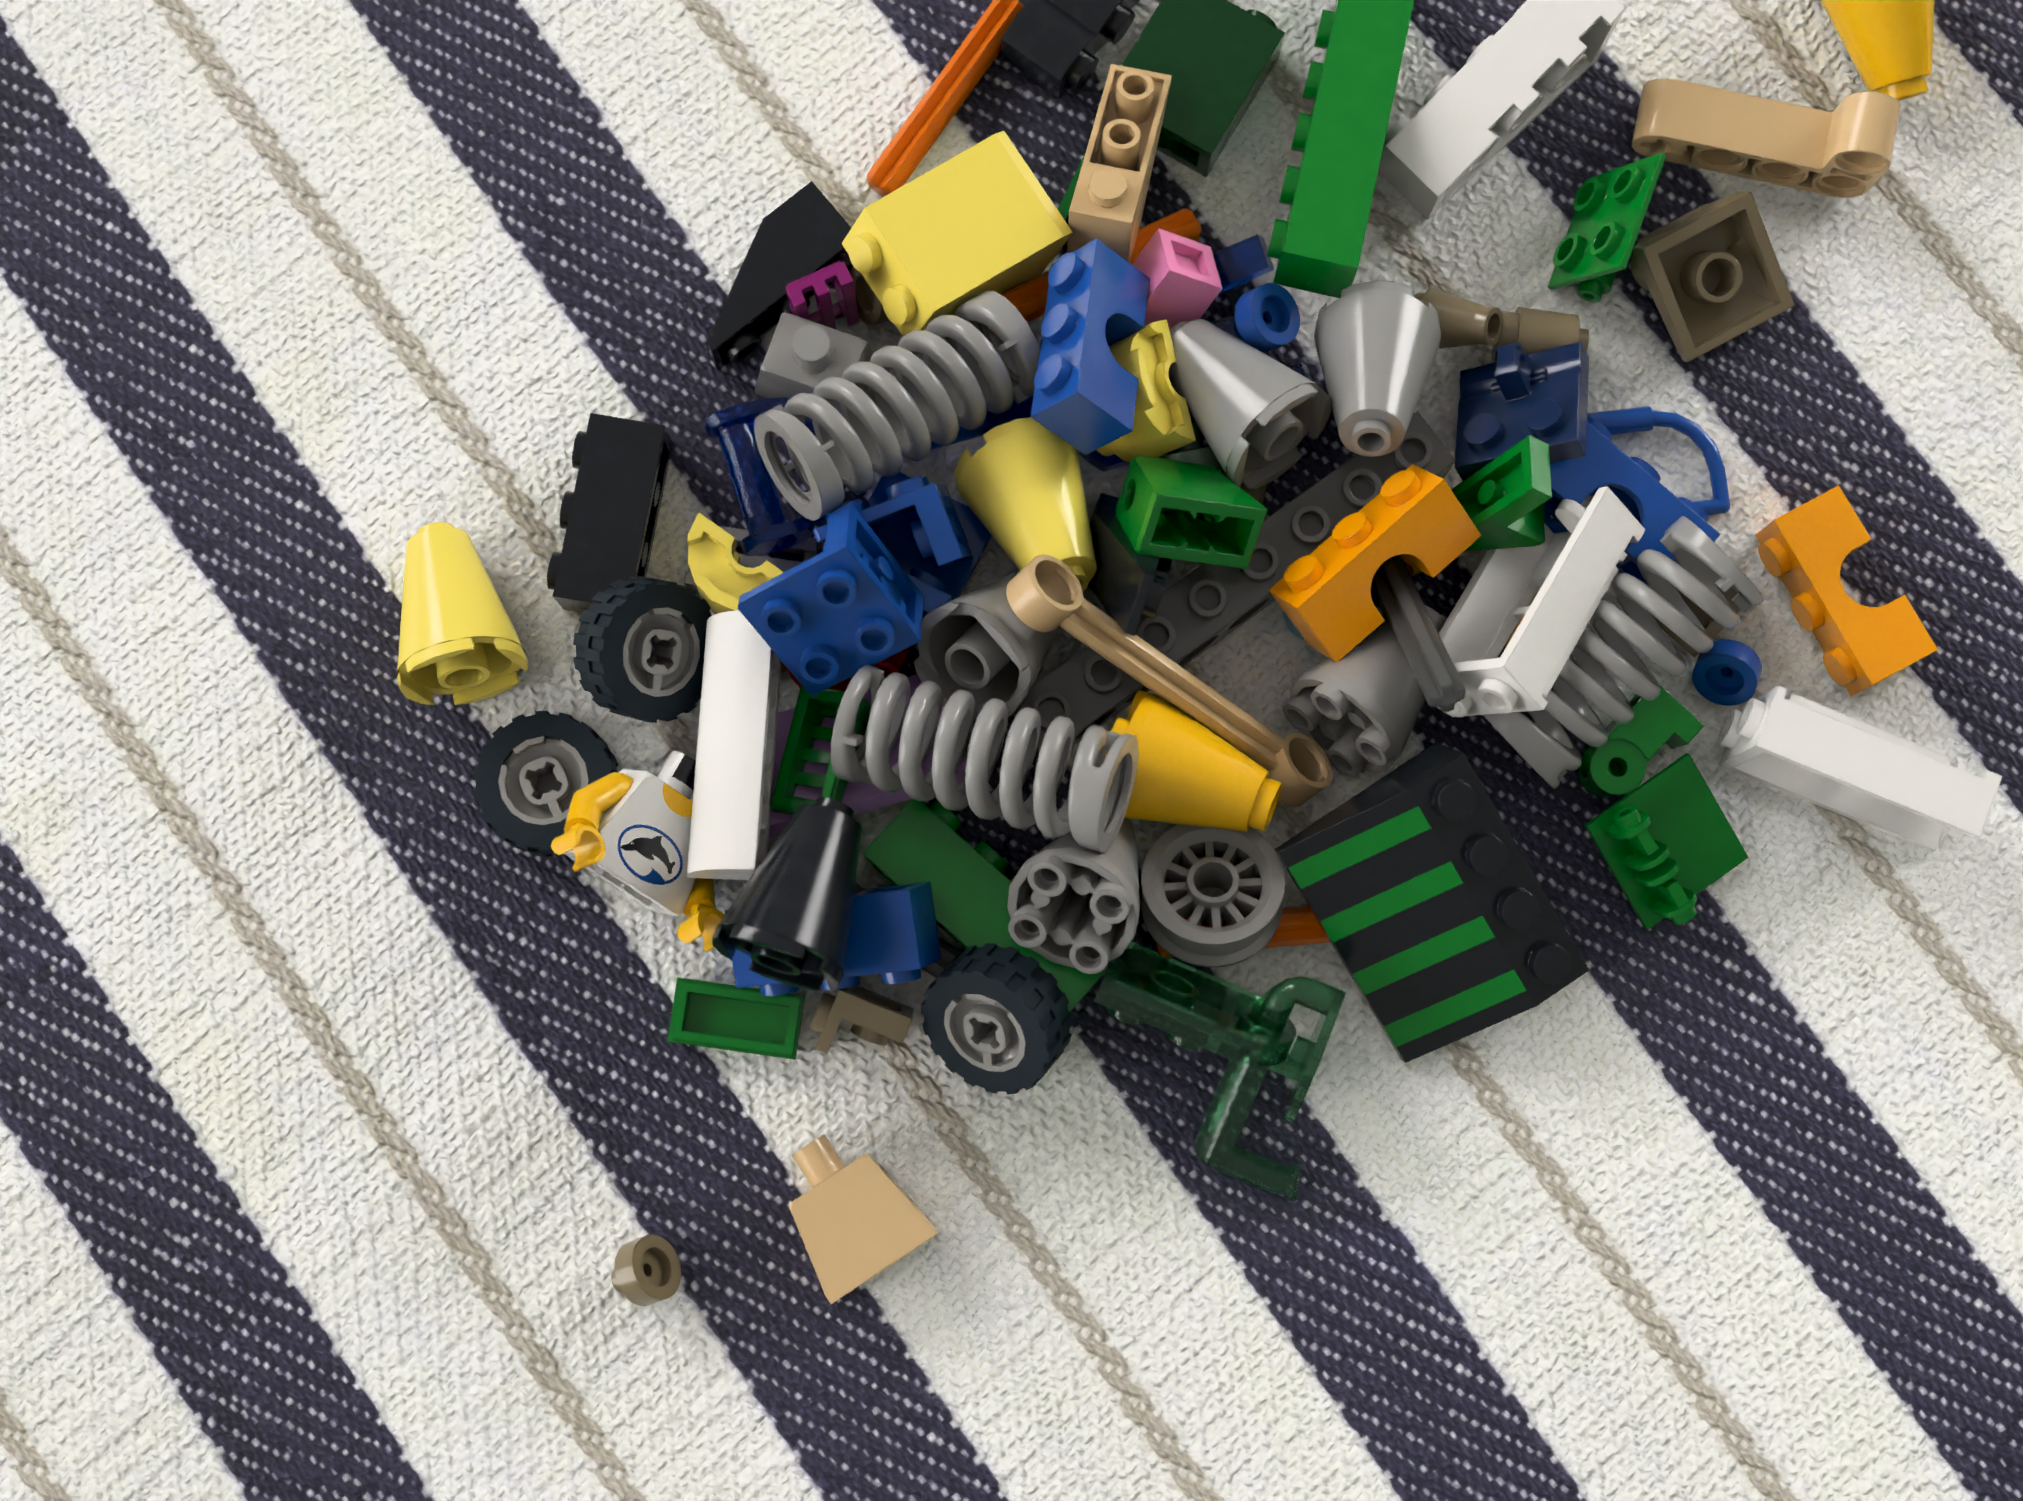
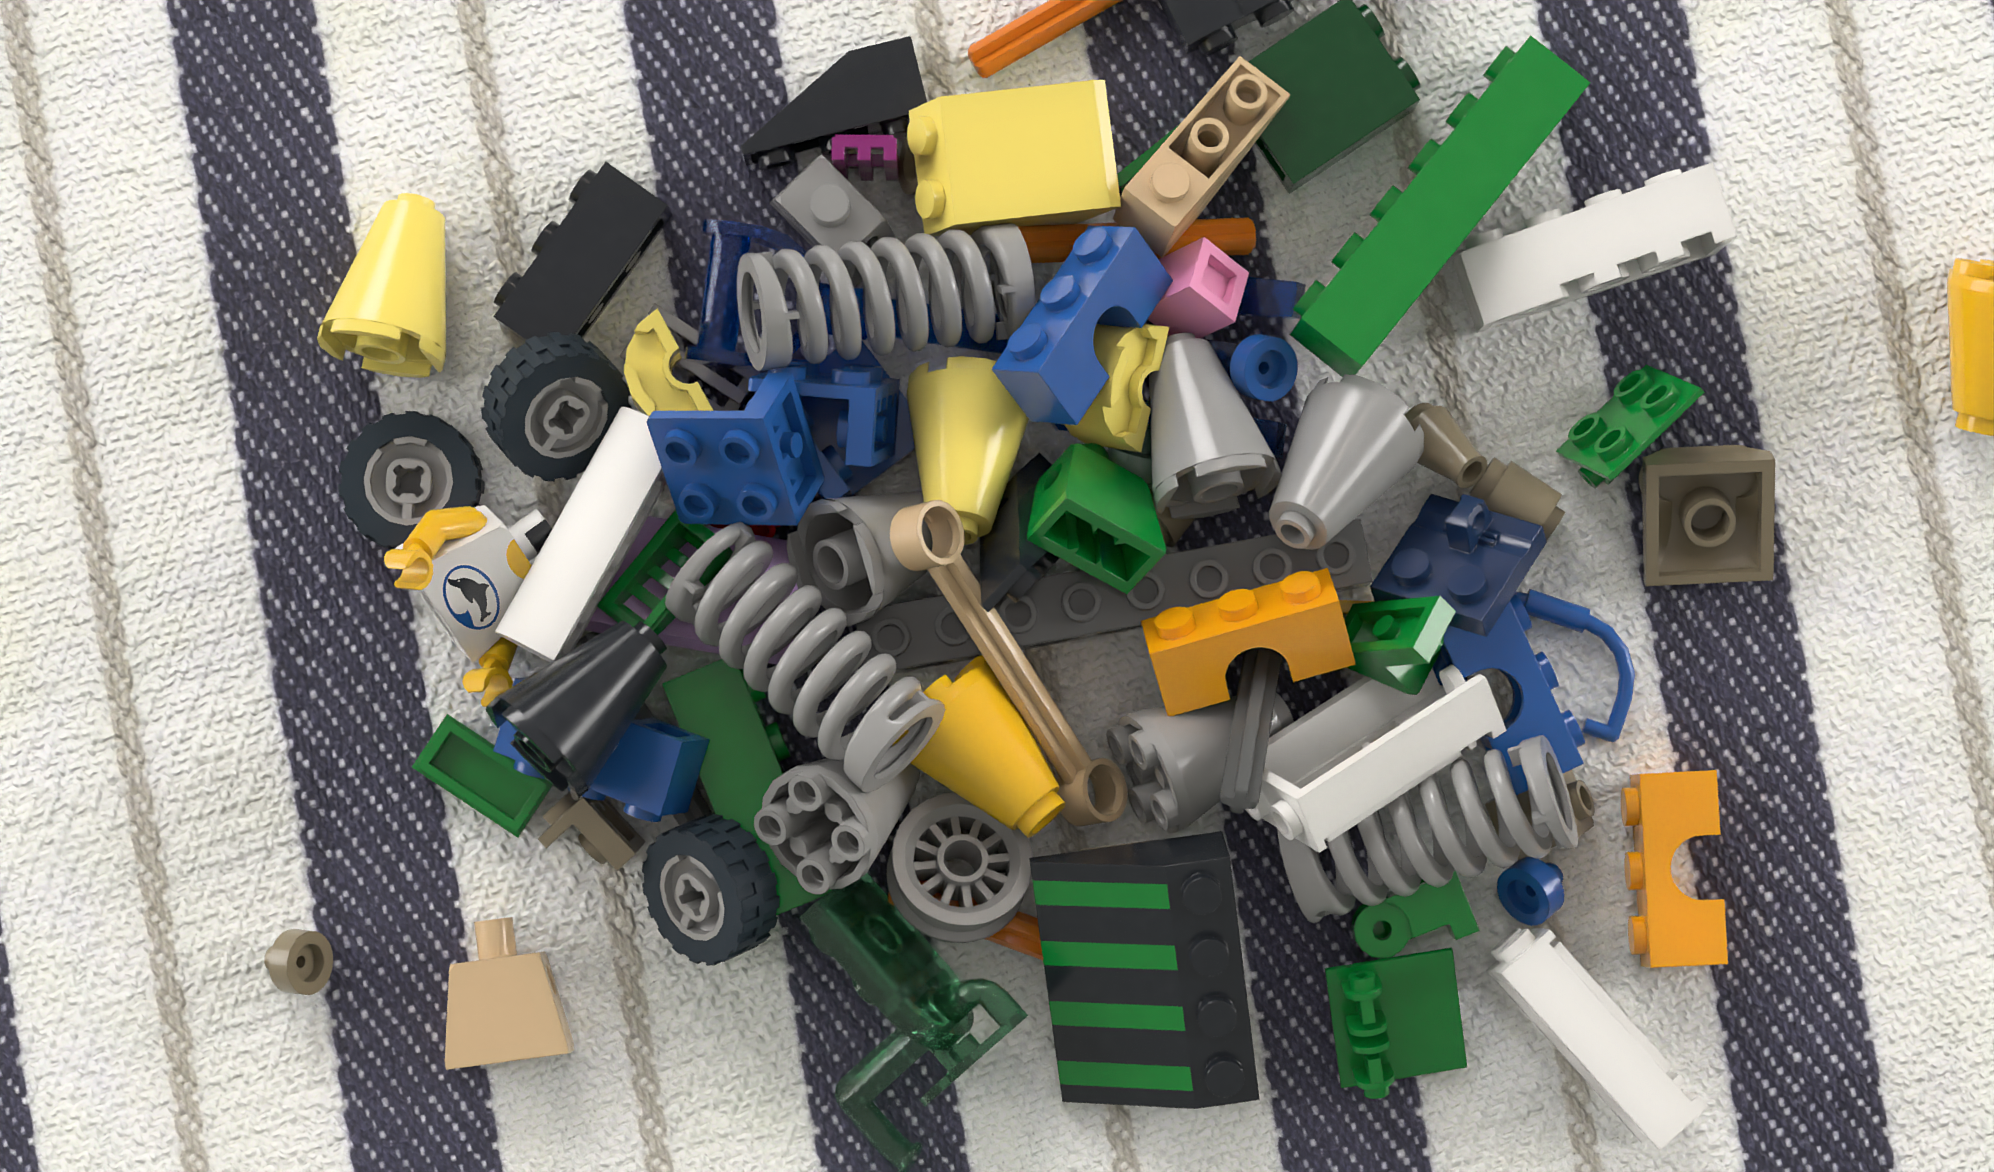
camera: 25 degrees right, 5 degrees up
(1769, 139) = (1824, 407): tan beam -> none

